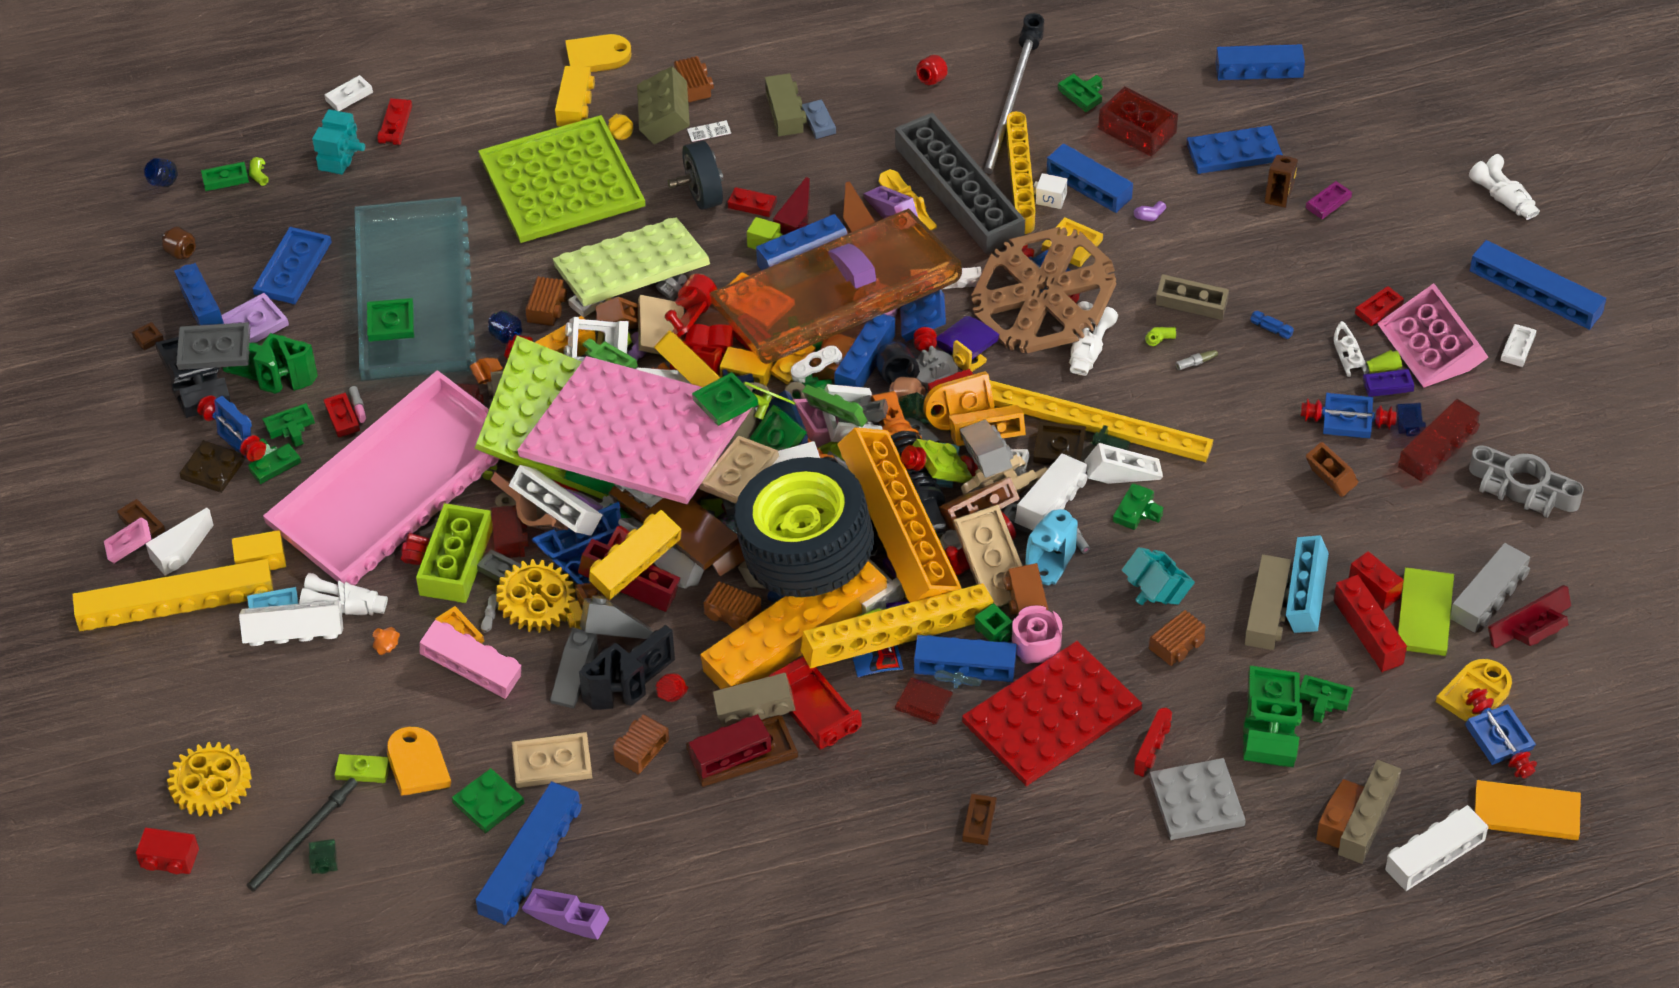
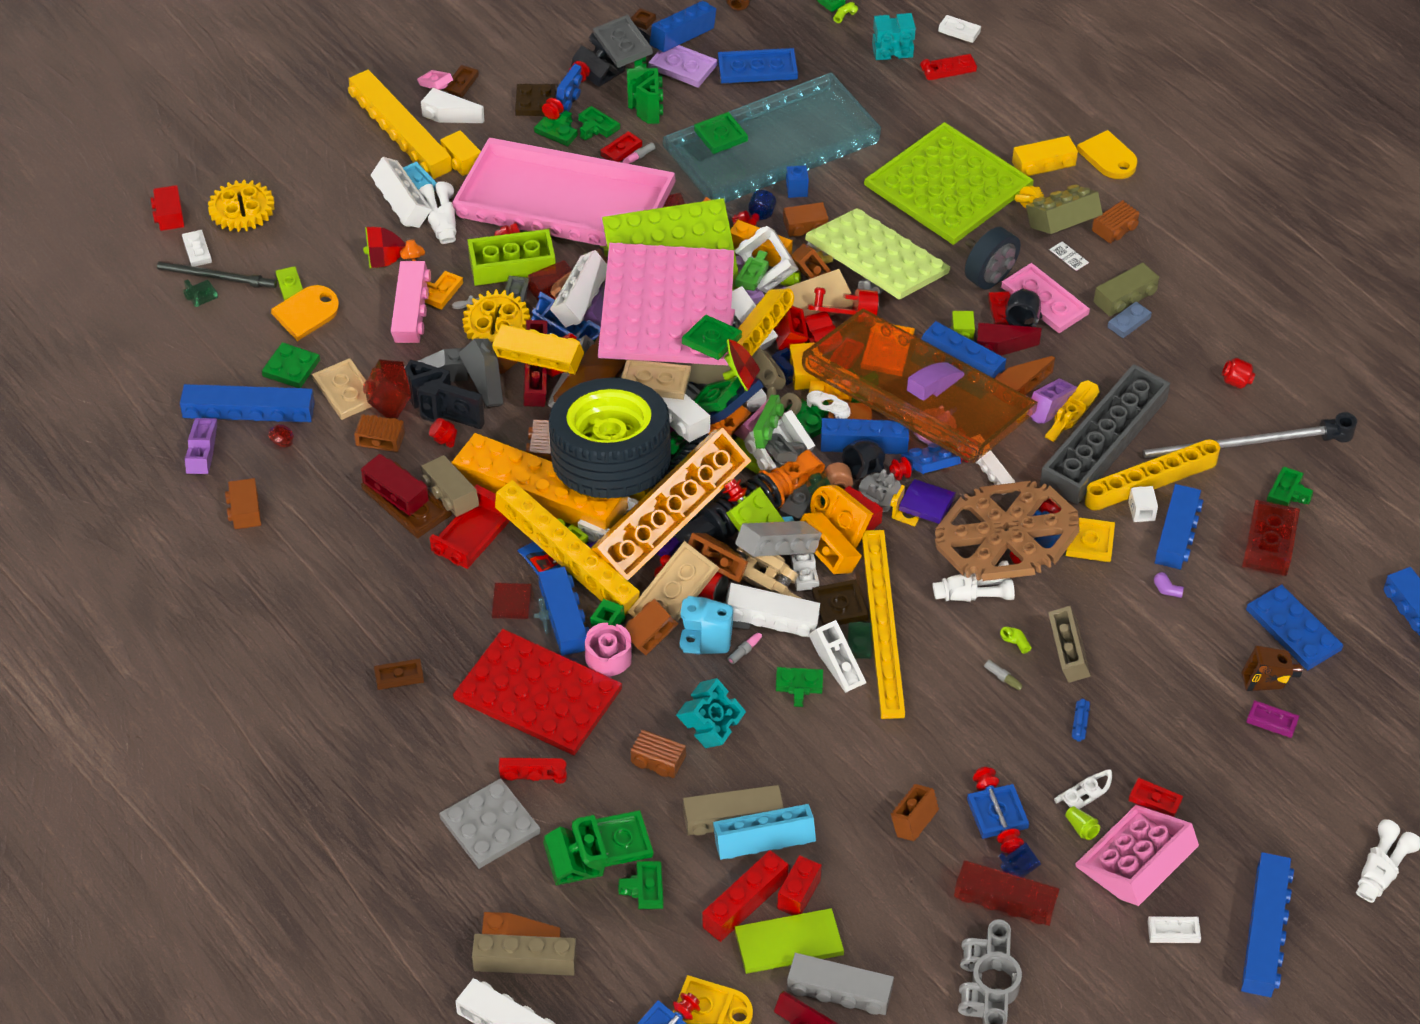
camera: 65 degrees right, 0 degrees up
(246, 843) = (196, 248): none -> white plate
(365, 662) = (382, 247): none -> shield
(489, 289) = (797, 181): none -> blue brick
(593, 834) = (281, 435): none -> clear red hat
(597, 710) = (387, 388): none -> clear red slope
(677, 893) = (244, 503): none -> dark orange brick
(761, 164) = (1058, 306): none -> bright pink plate
(770, 175) = (1022, 306): none -> black piece
(1388, 383) = (1059, 833): dark purple plate -> none

